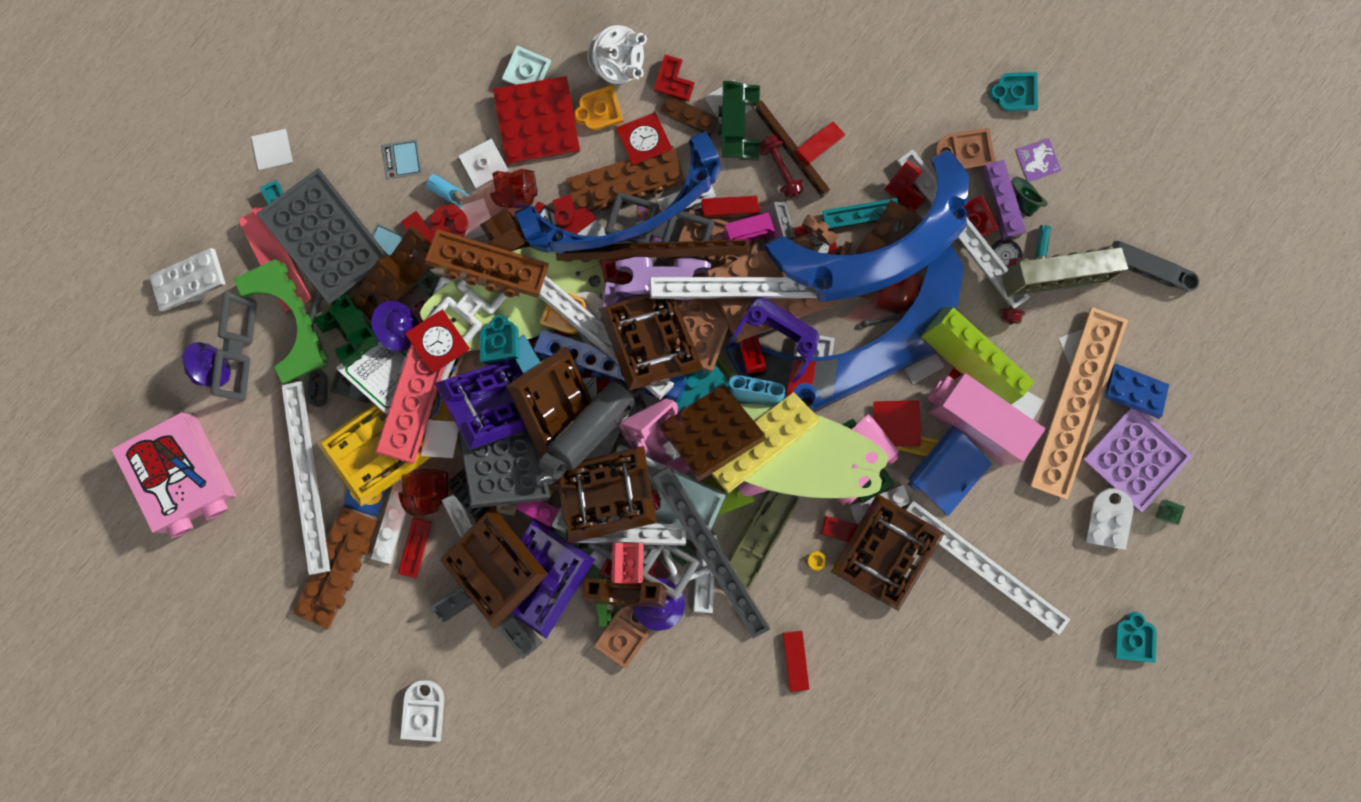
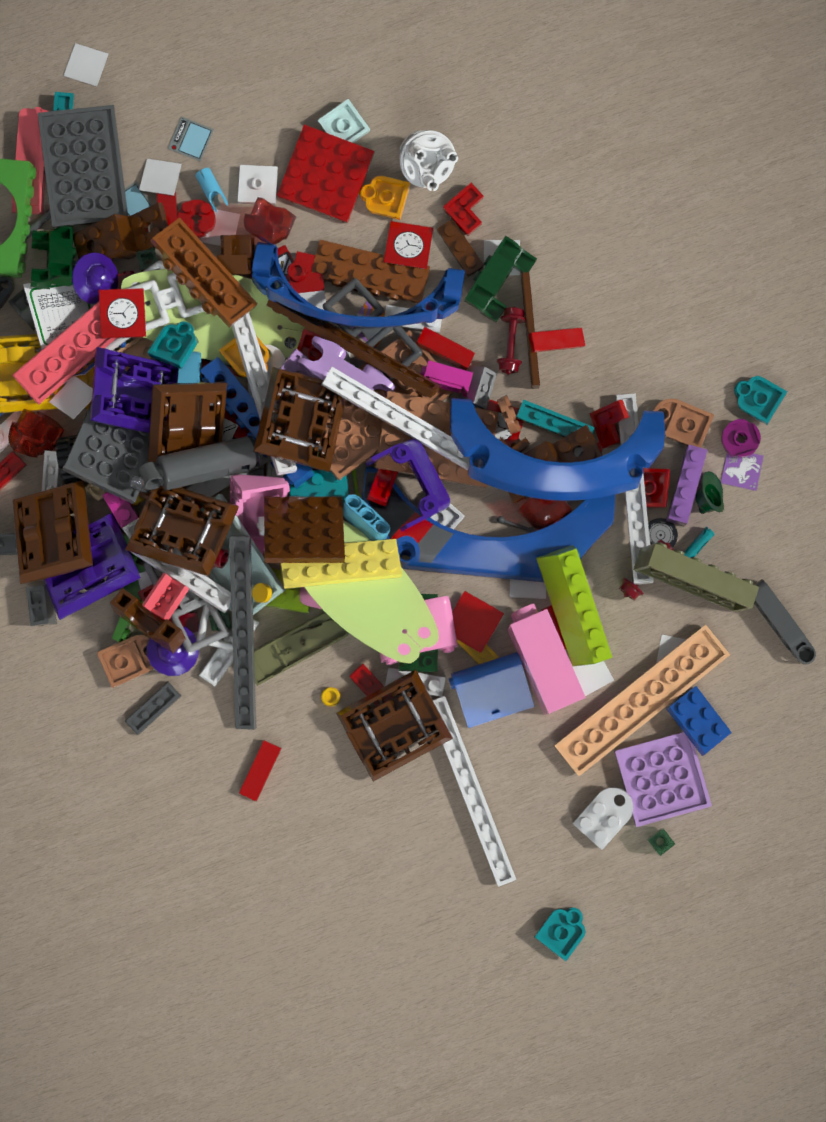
camera: 35 degrees right, 0 degrees up
(395, 206) = (160, 177): none -> white sticker
(671, 664) = (153, 708): none -> dark grey tile
(708, 508) = (261, 592): none -> yellow tile
(1018, 144) = (746, 429): none -> magenta plate

